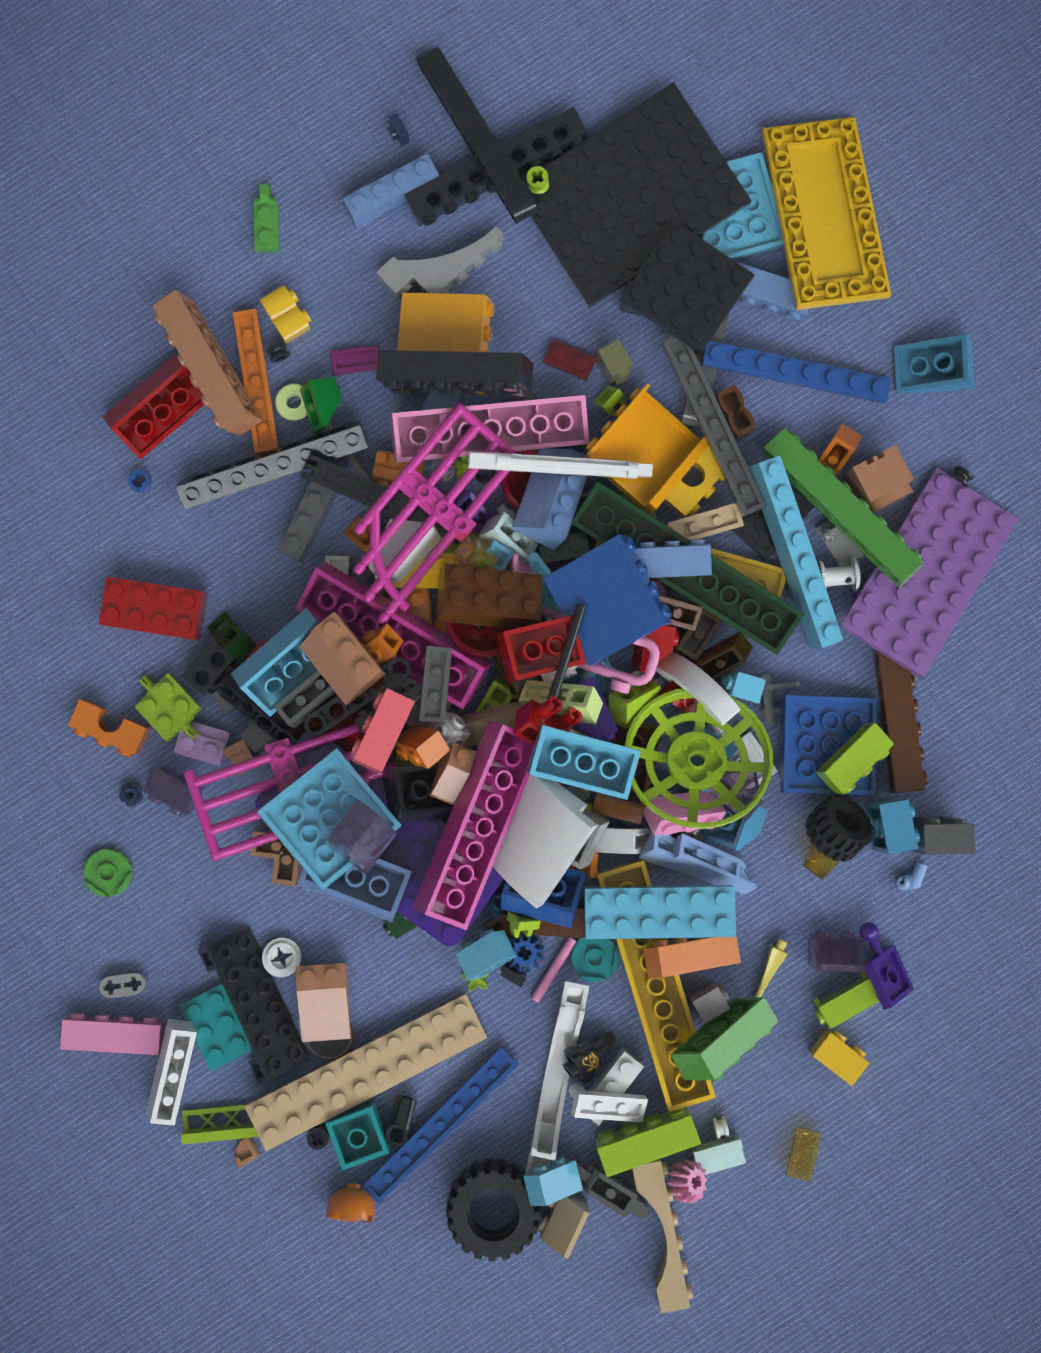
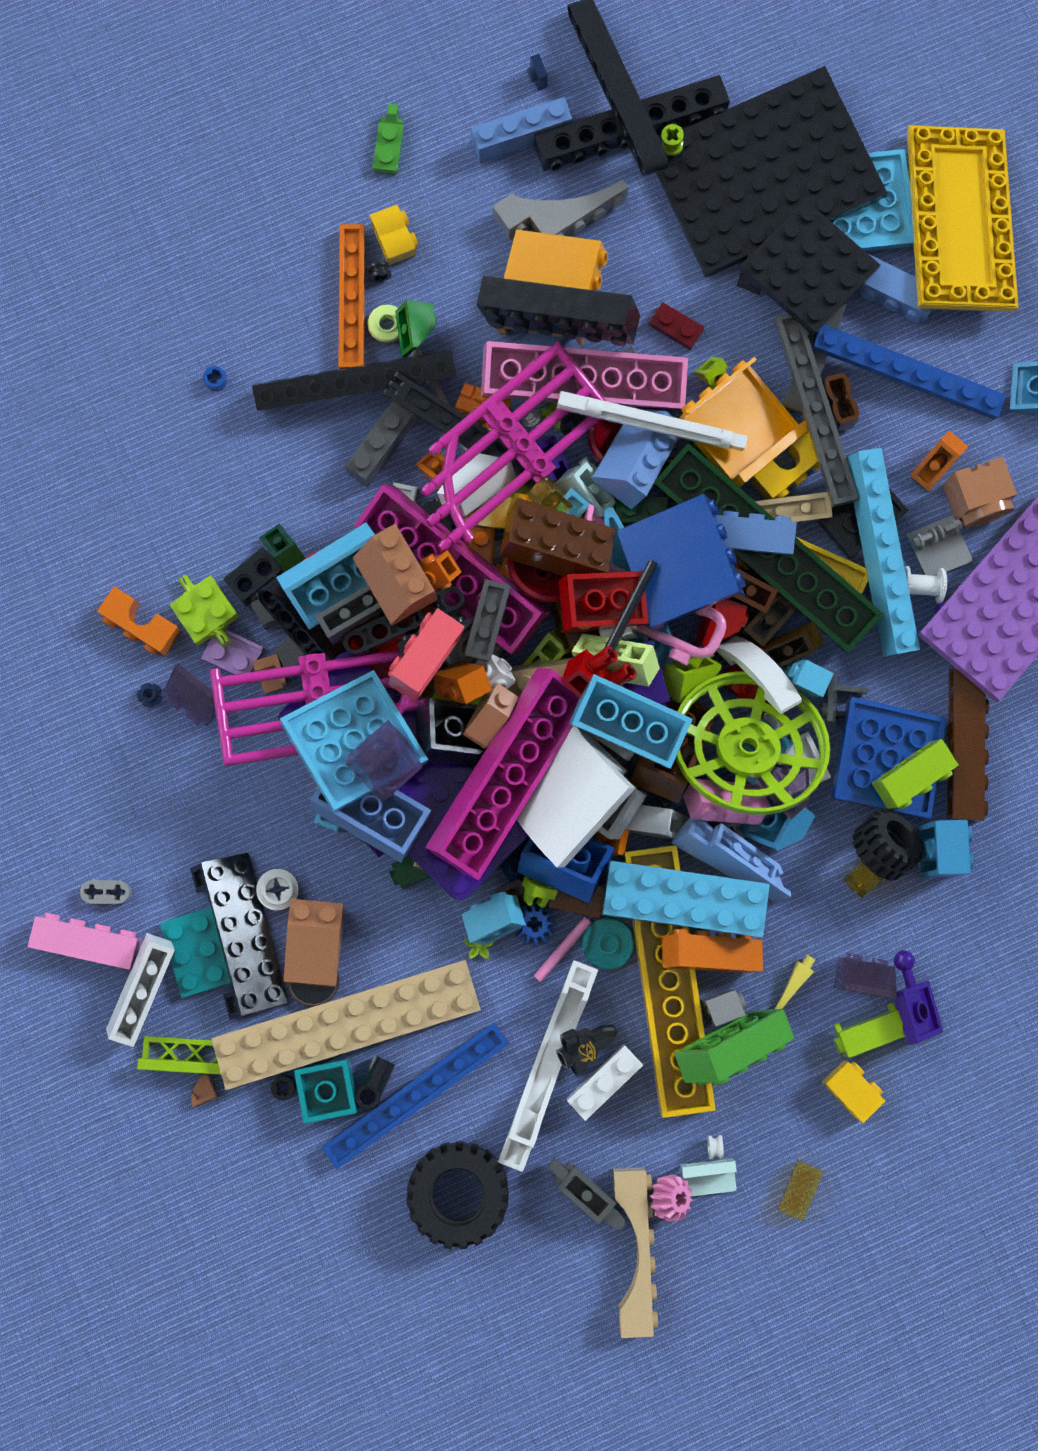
camera: 10 degrees right, 5 degrees down
(108, 872) = (110, 772): bright green tile -> none
(153, 608) = (206, 507): red brick -> none
(155, 408) = (247, 306): red slope -> none
(206, 363) = (305, 268): nougat brick -> none
(285, 868) = (299, 782): medium nougat brick -> none
(351, 1205) = (306, 1165): orange cylinder -> none
(354, 360) = (455, 292): magenta tile -> none
(512, 975) = (518, 946): black tile -> none
(552, 1182) = (527, 1172): medium azure brick -> none
(564, 1223) = (531, 1220): tan slope -> none
(607, 1105) = (598, 1099): white piece -> none
(614, 363) = (722, 333): olive brick -> none
(646, 1140) = (634, 1145): lime brick -> none
(844, 509) = (941, 517): bright green brick -> none
(912, 880) = (958, 916): light blue arm -> none
(945, 835) = (999, 870): dark grey brick -> none

